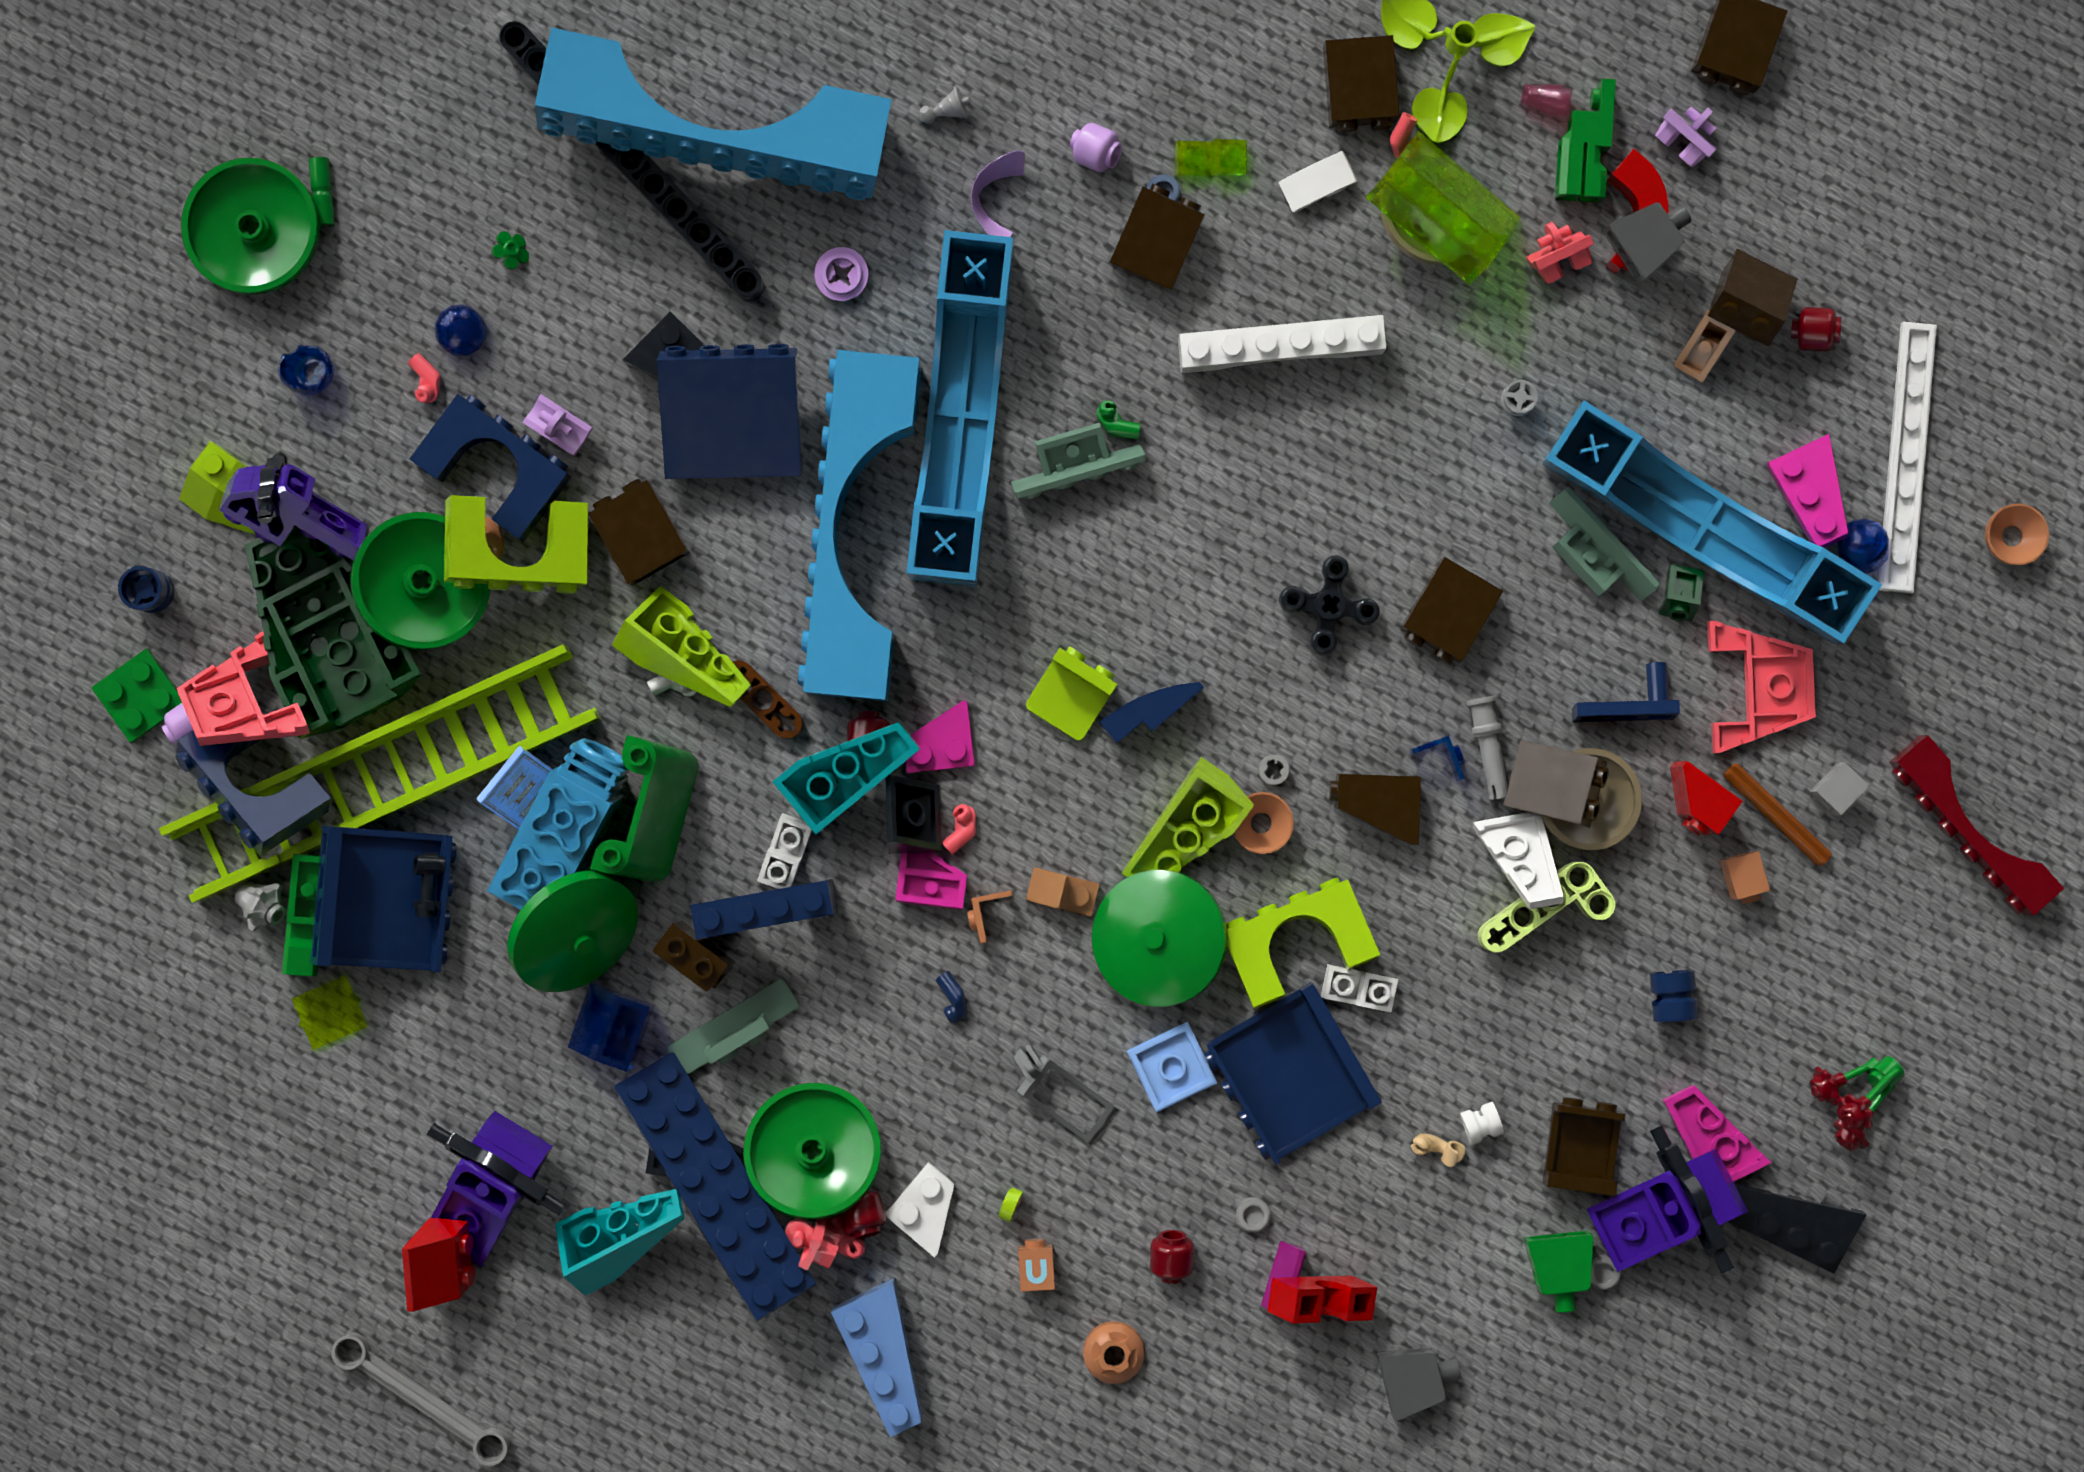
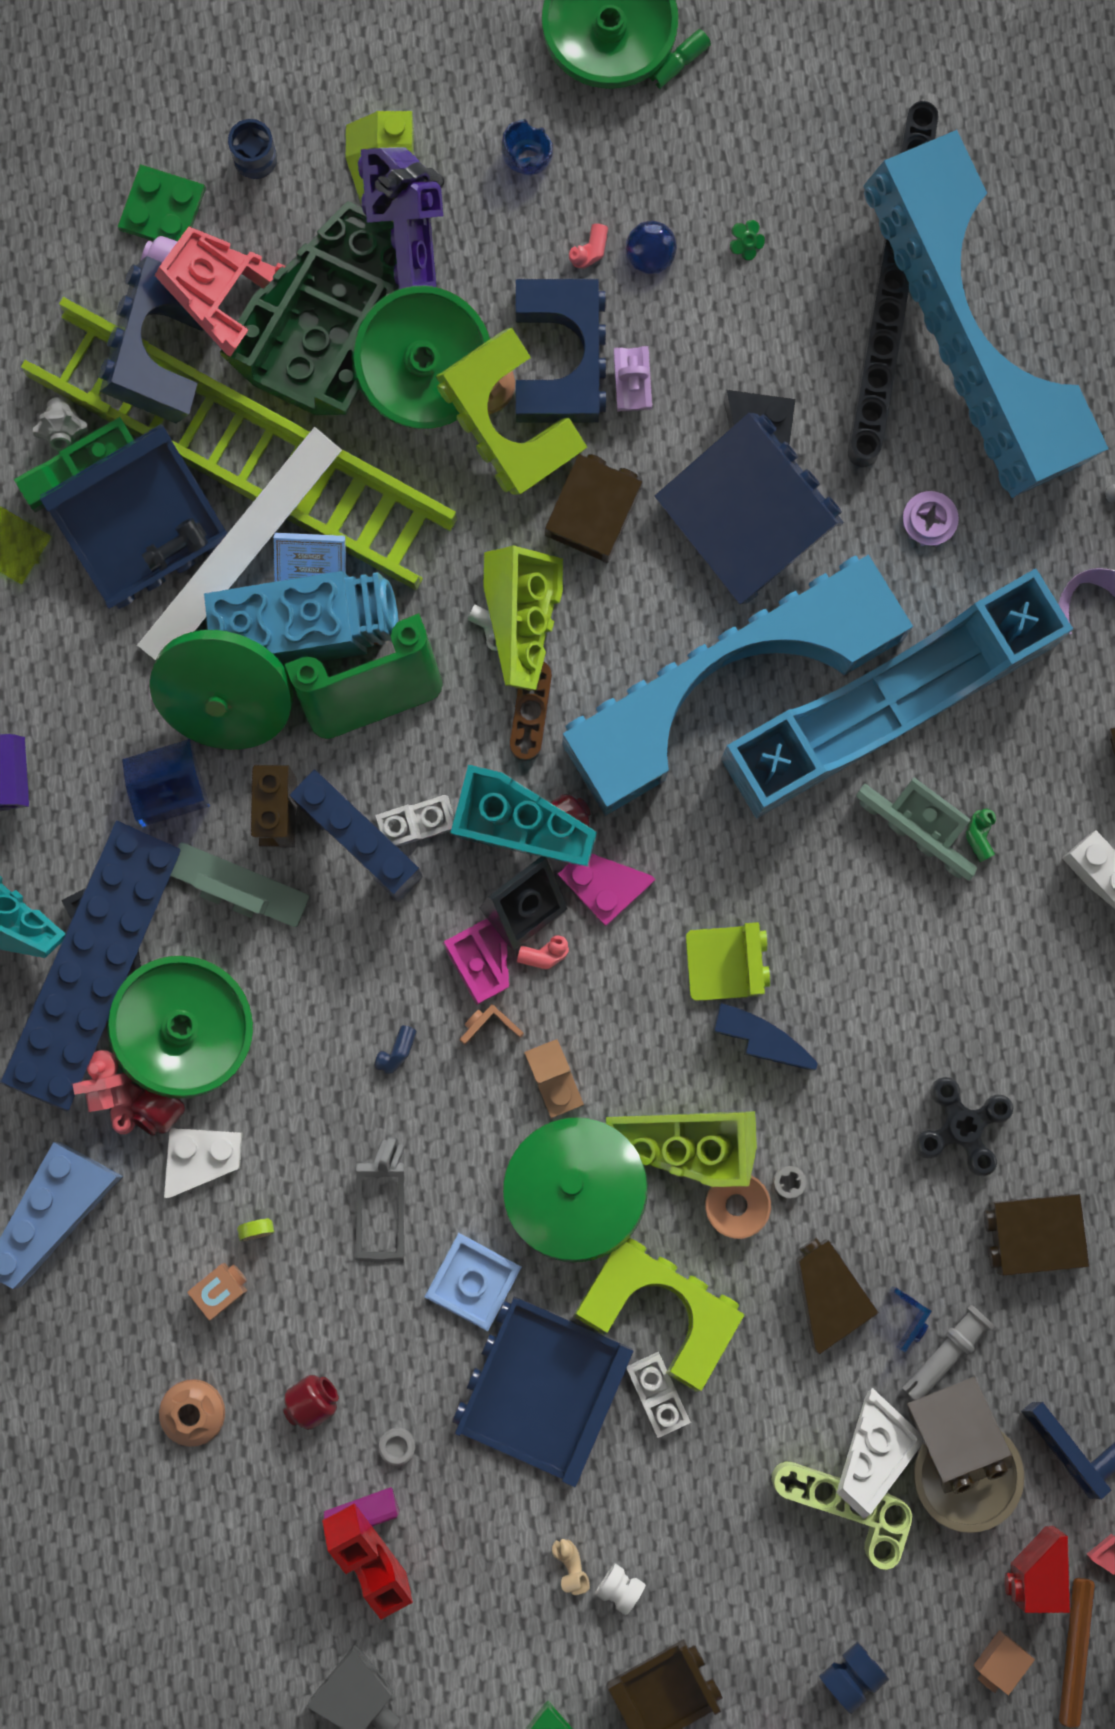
camera: 50 degrees right, 5 degrees down
(465, 830) = (244, 540): none -> white tile

